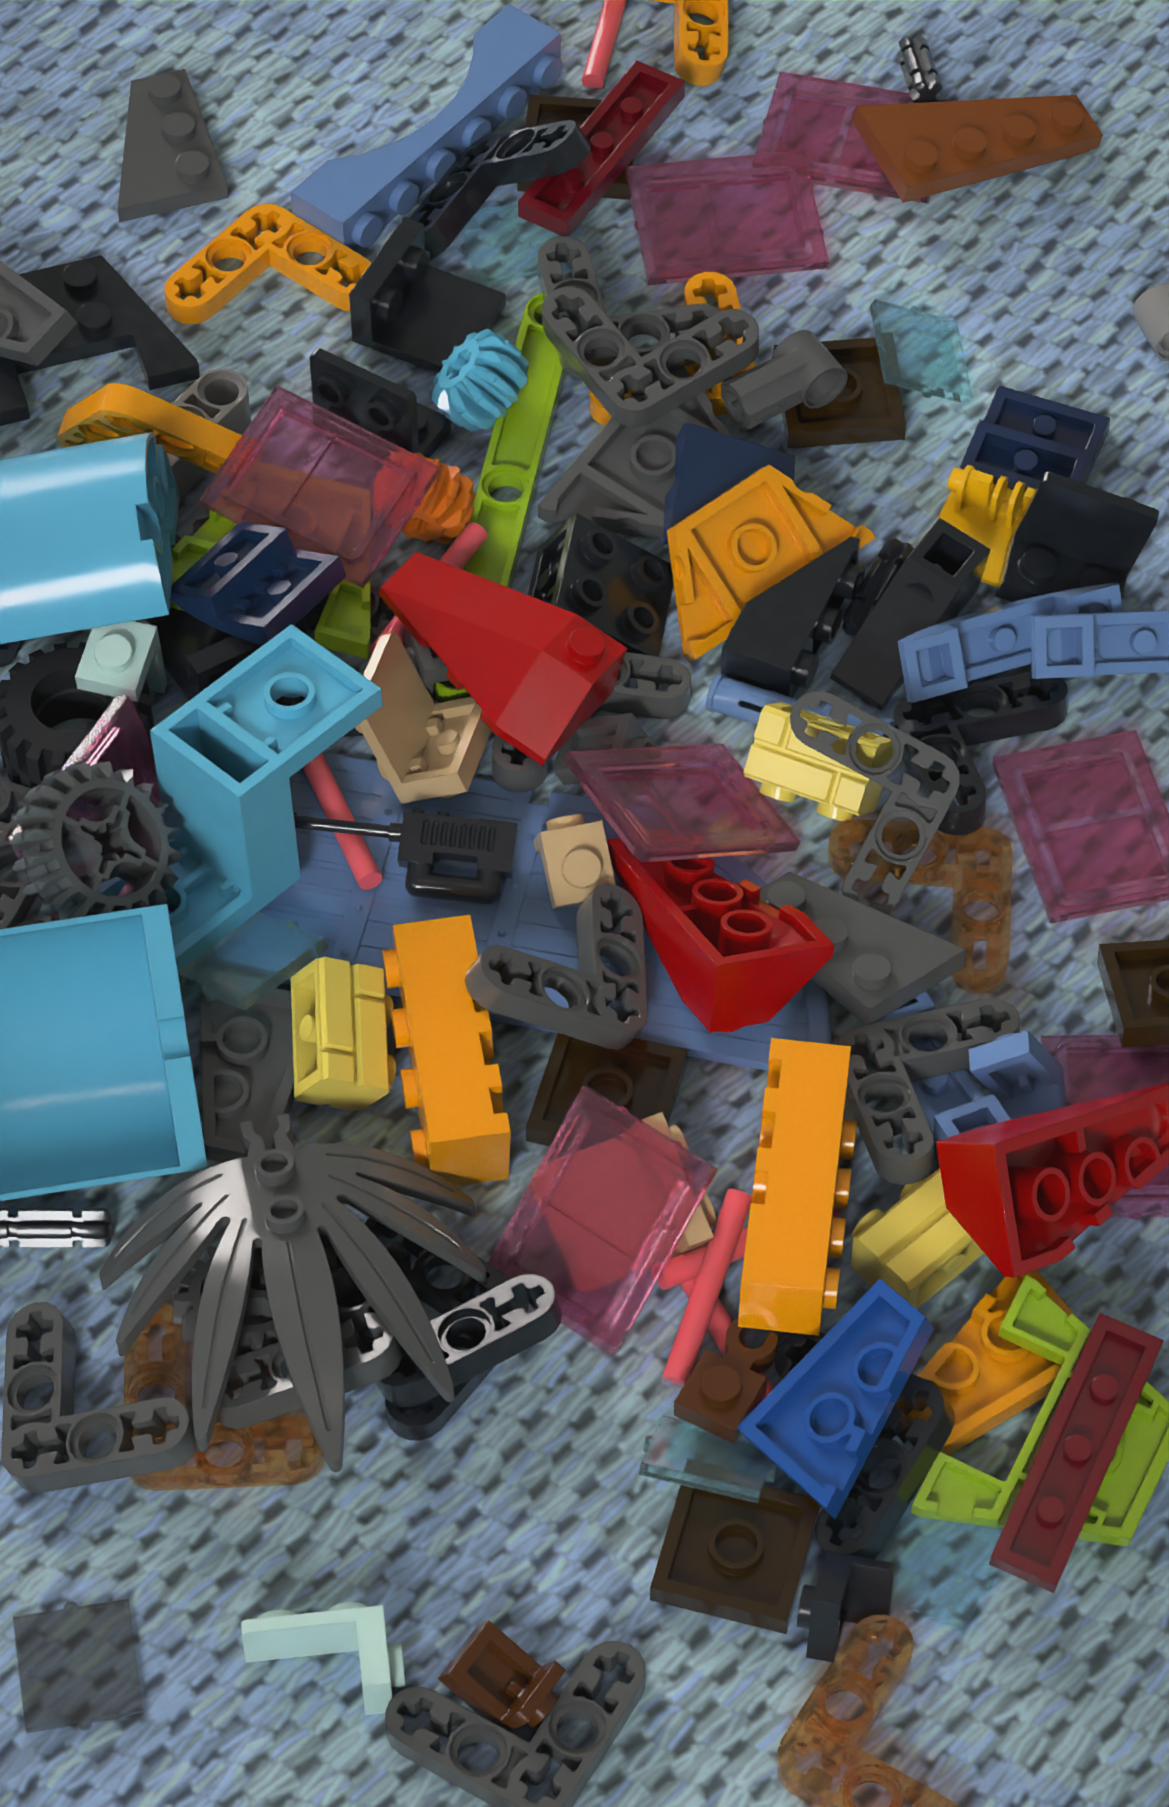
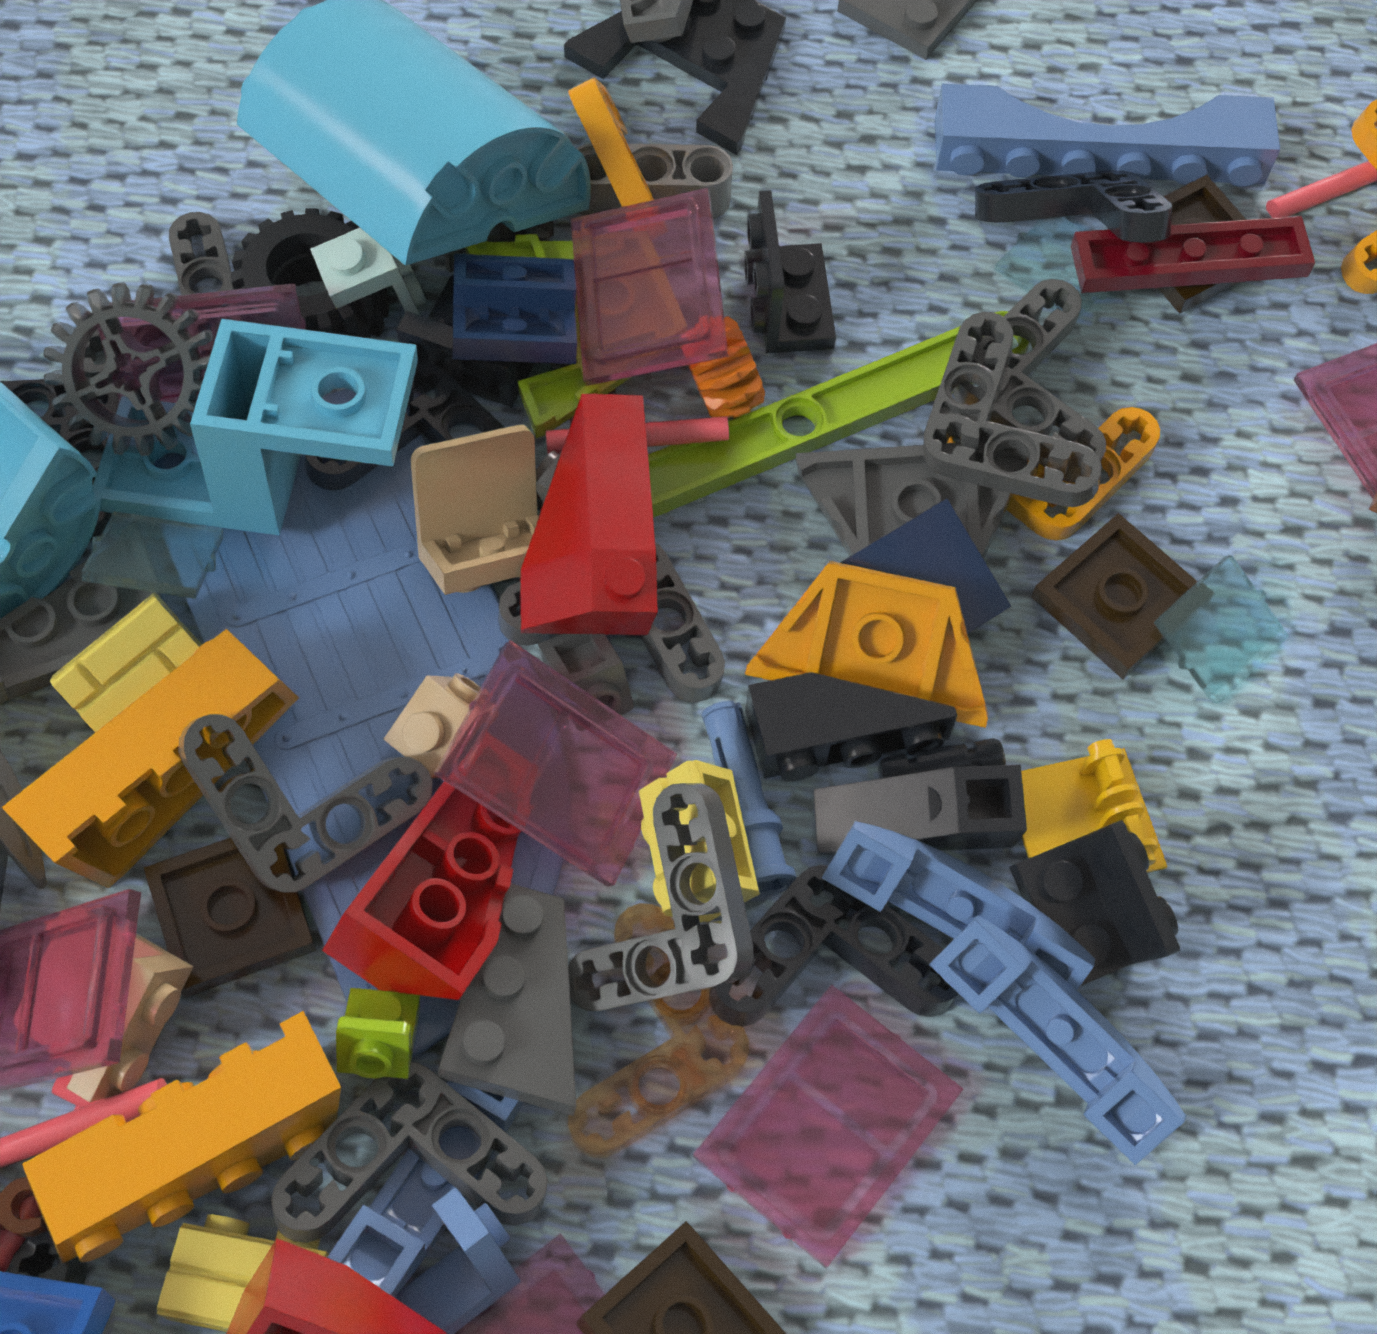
camera: 50 degrees right, 10 degrees up
(271, 249) = (897, 118): light orange beam -> none
(335, 807) = (362, 526): coral bar -> none
(416, 308) = (925, 241): black bracket -> none
(432, 837) = (377, 600): black piece -> none
(479, 380) = (877, 329): medium azure gear -> none
(605, 583) = (748, 559): black bracket -> none
(726, 217) = (1222, 391): clear pink piece -> none
(795, 374) = (1091, 550): dark grey piece -> none
(821, 1022) = (377, 1033): none -> lime bracket
(1035, 436) = (1208, 790): dark blue slope -> none

